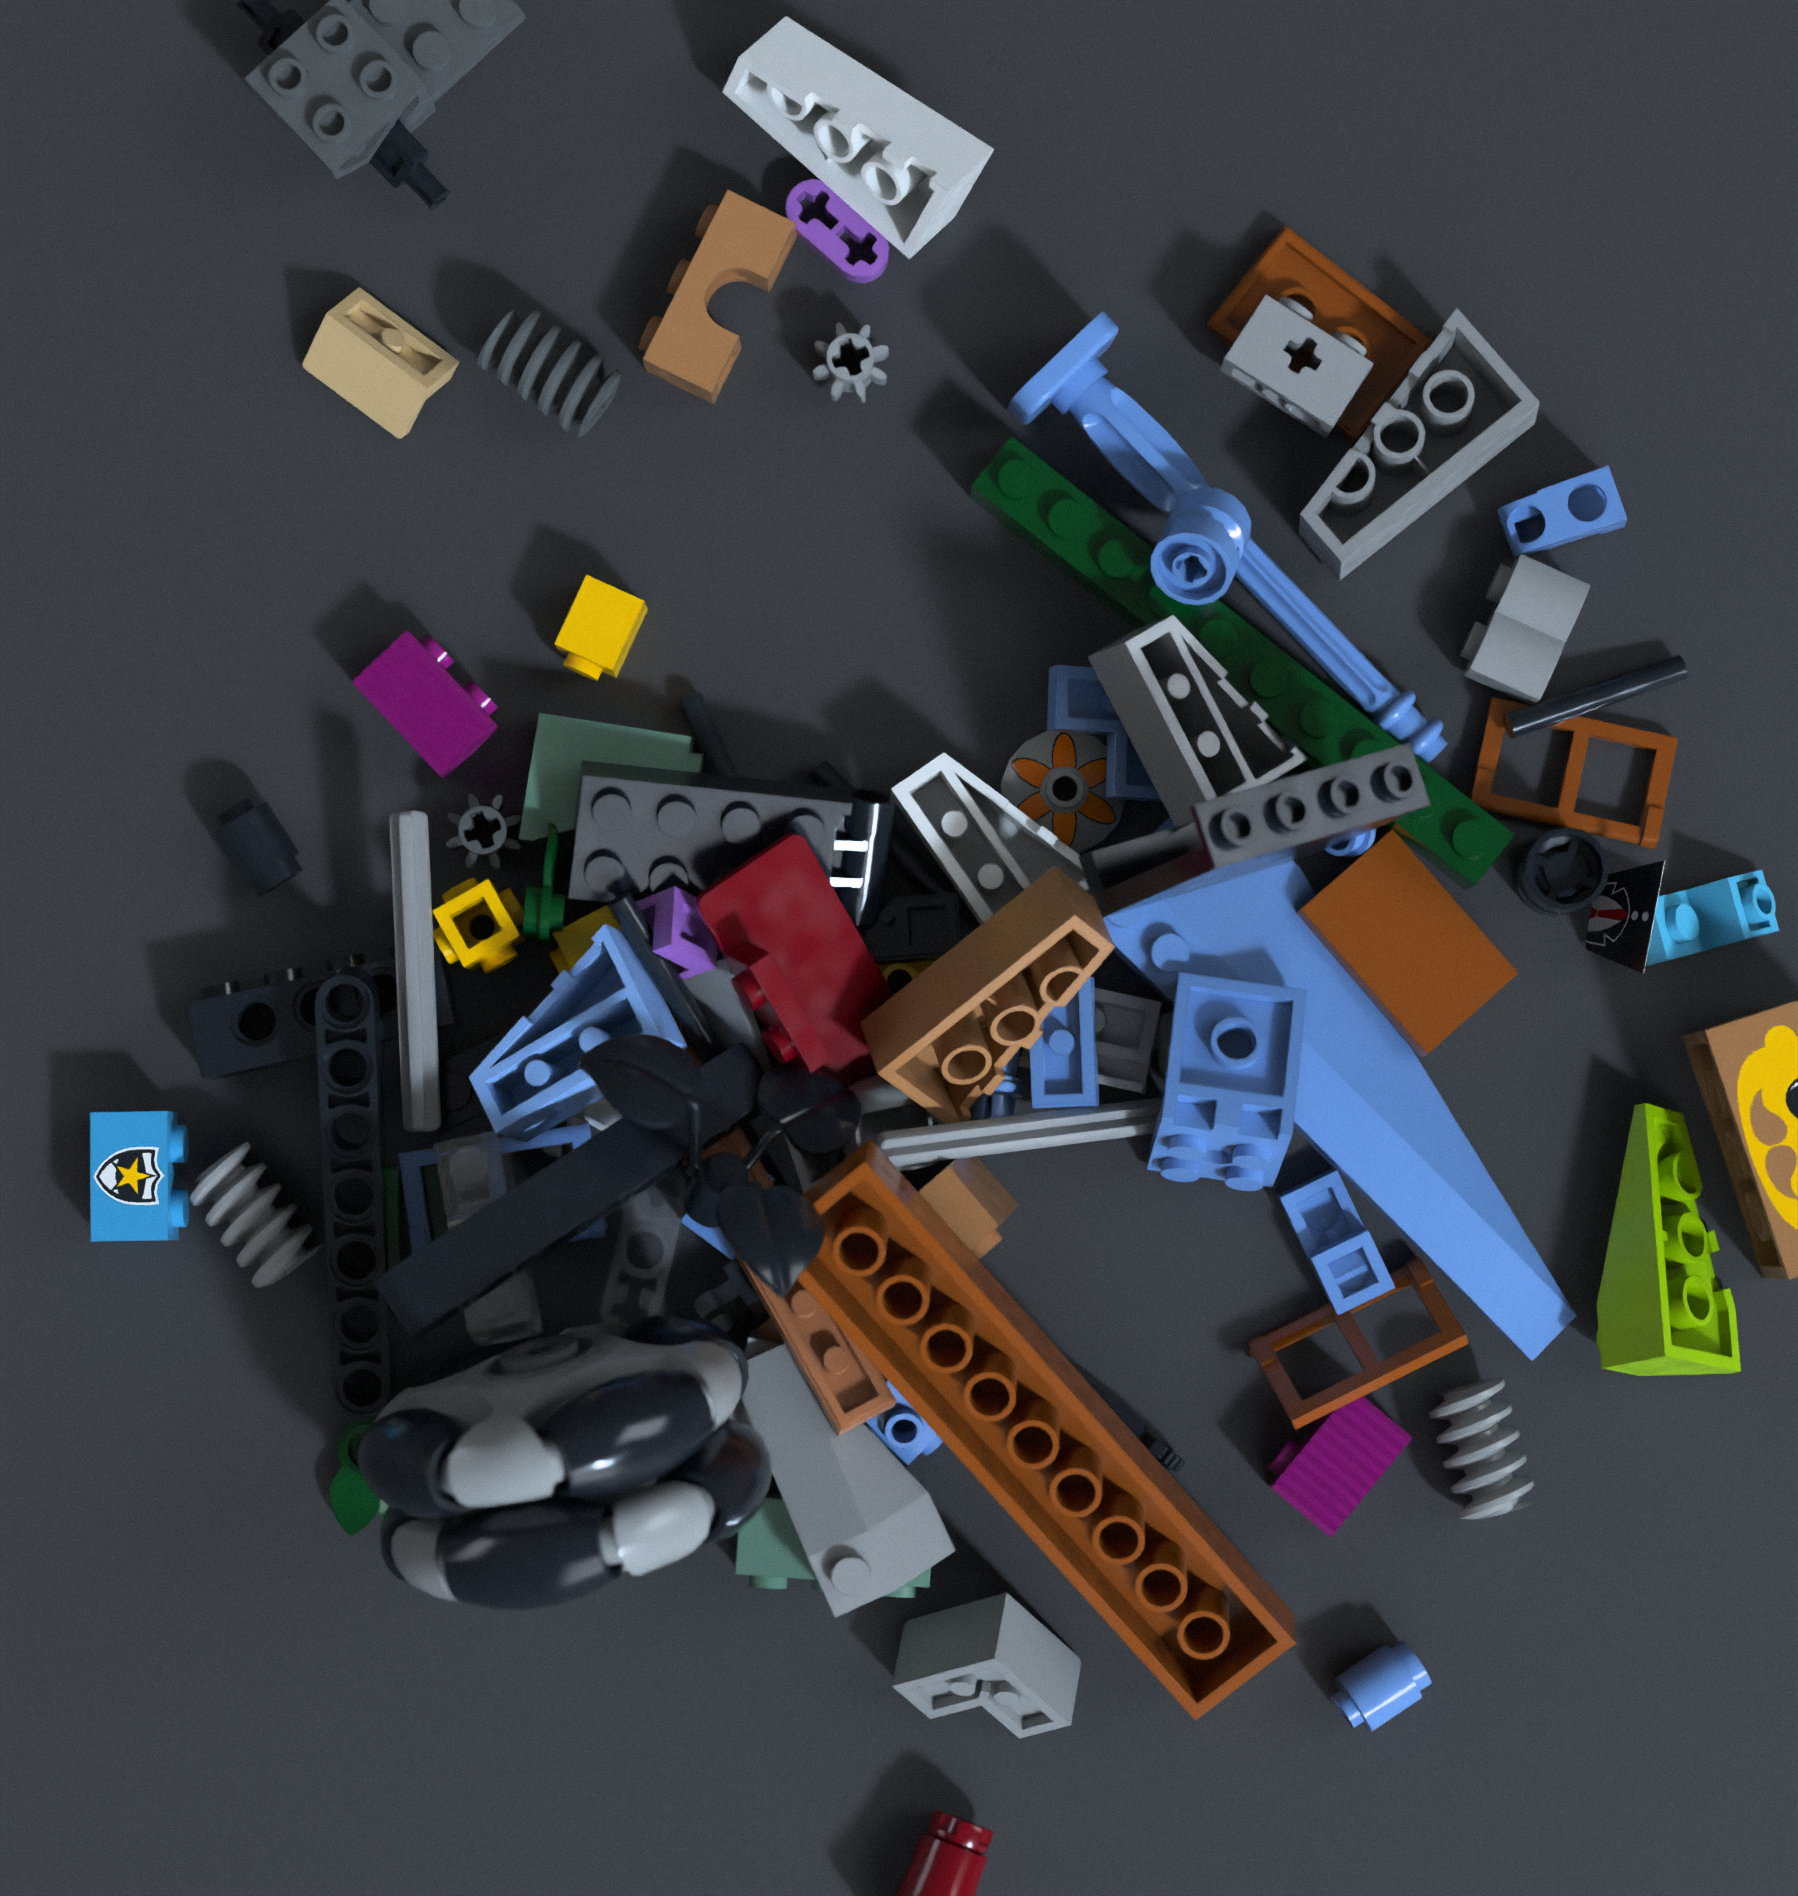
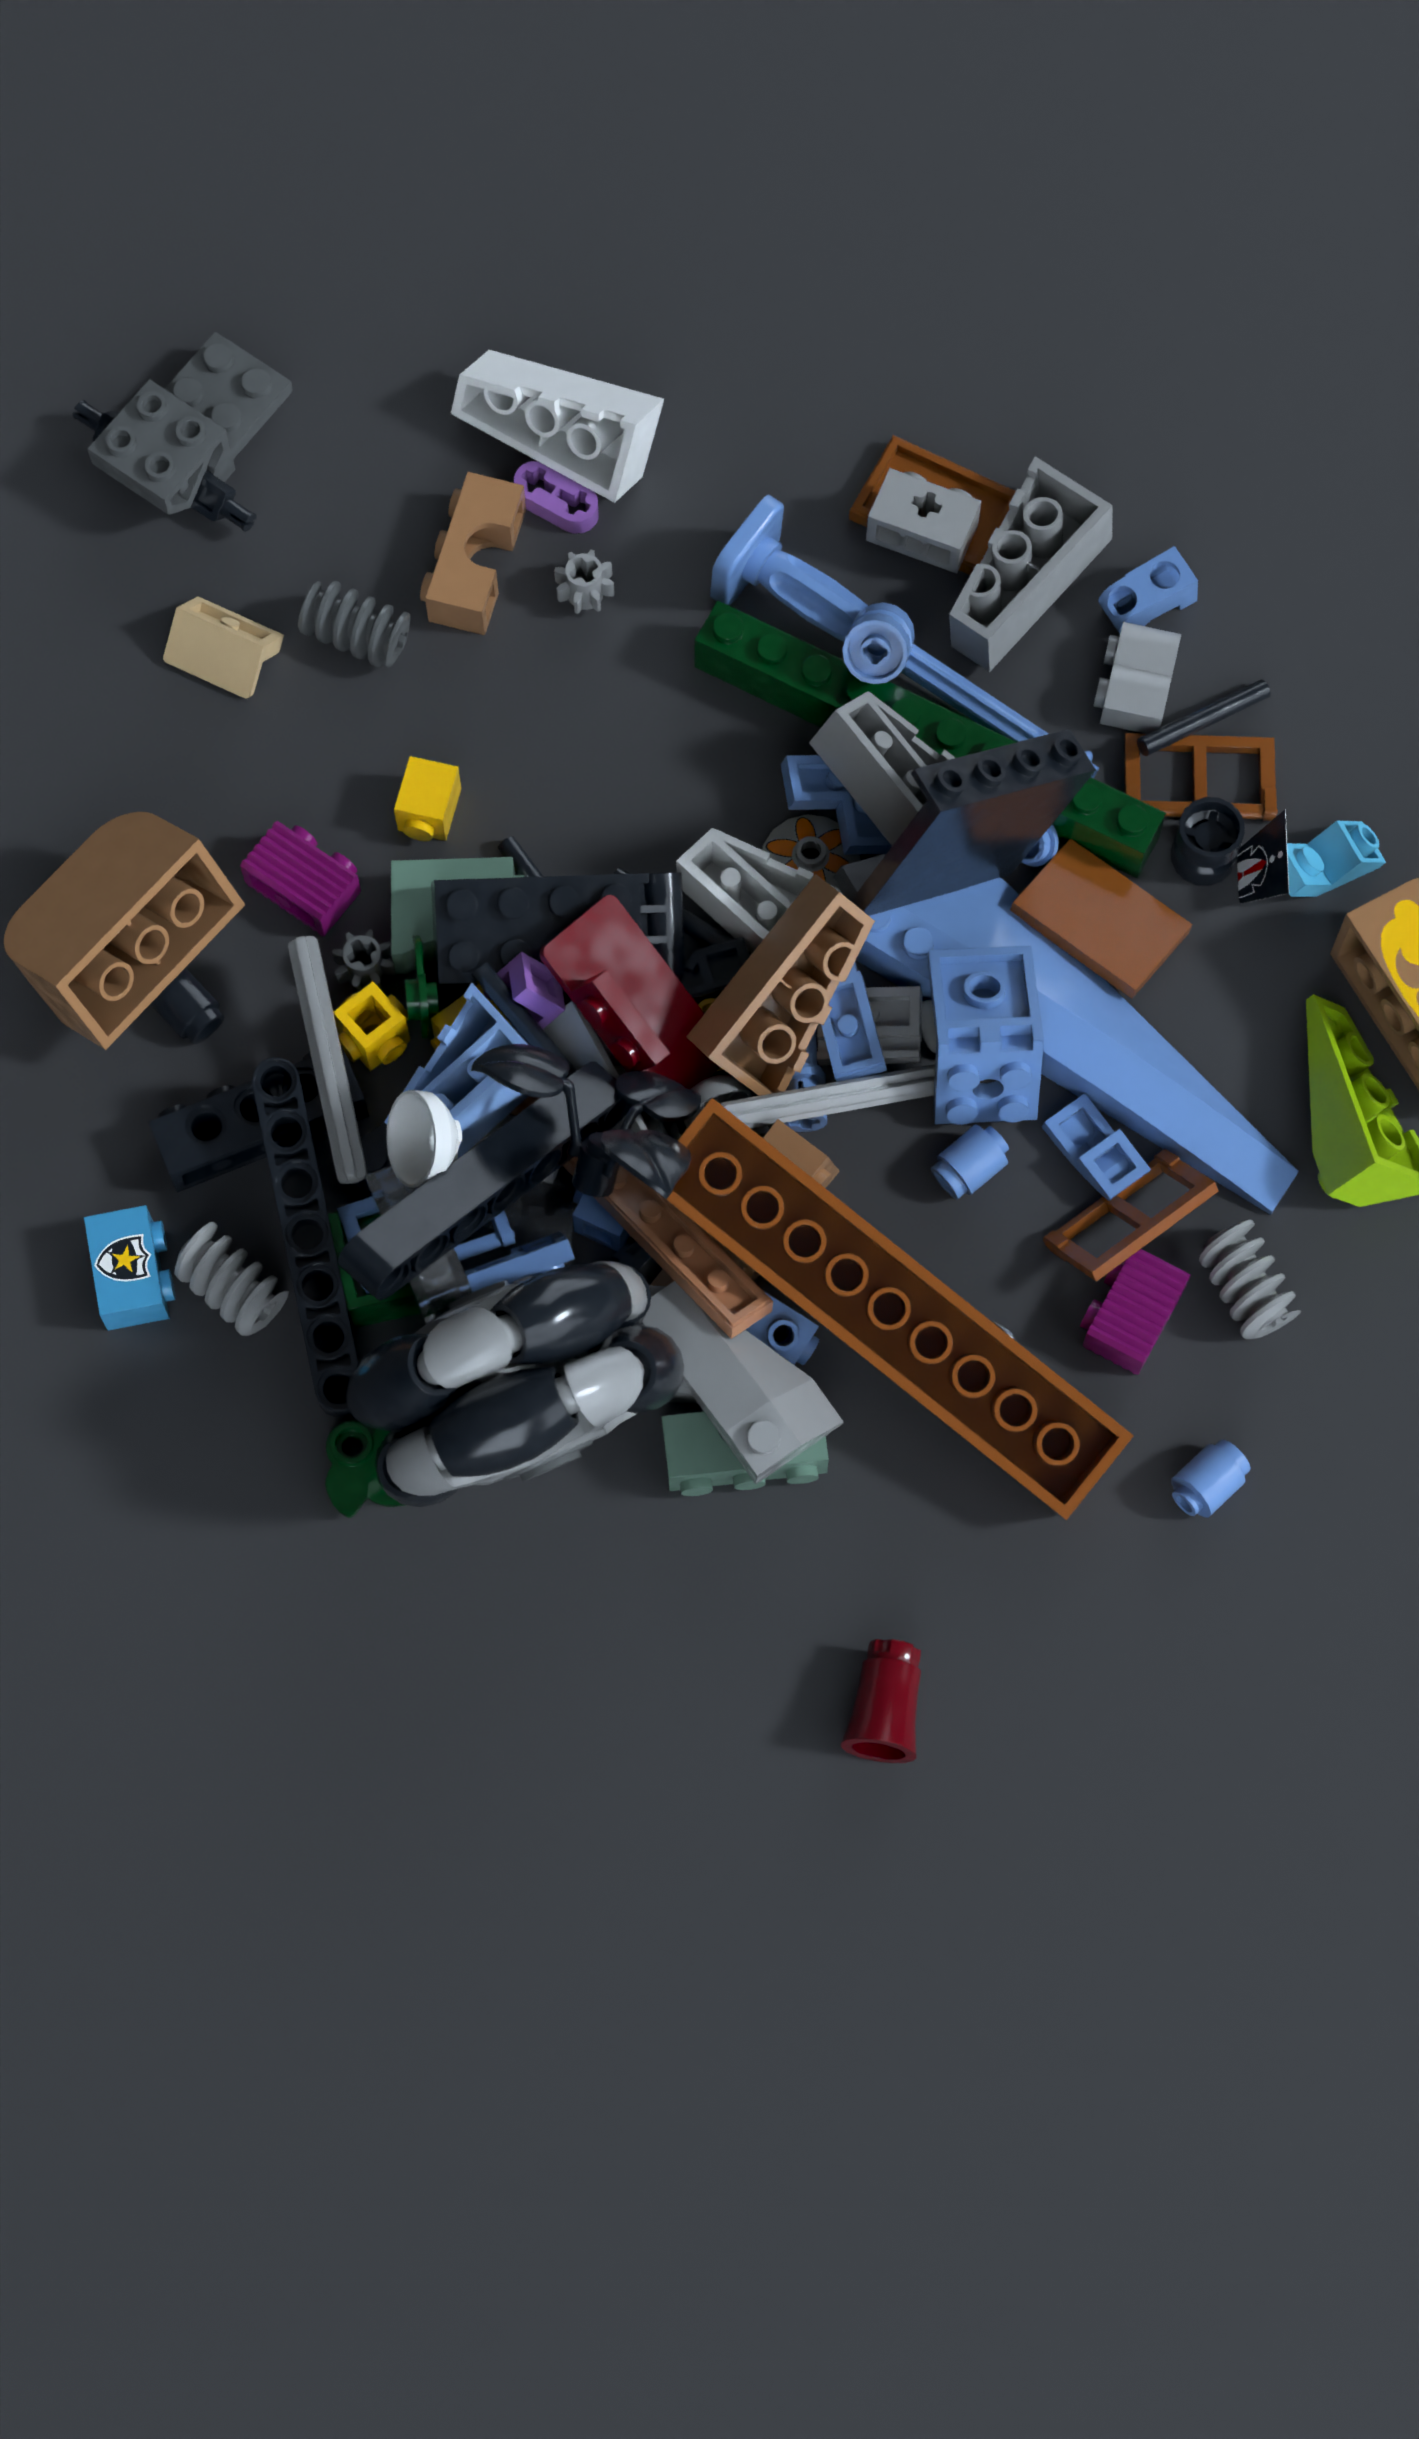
camera: 10 degrees left, 15 degrees down
(183, 746) = (119, 923): none -> medium nougat brick
(506, 1131) = (421, 1137): none -> white piece
(625, 1286) = (524, 1260): none -> medium blue plate
(989, 1658) = (886, 1509): light grey panel -> none
(1179, 1232) = (970, 1161): none -> medium blue brick

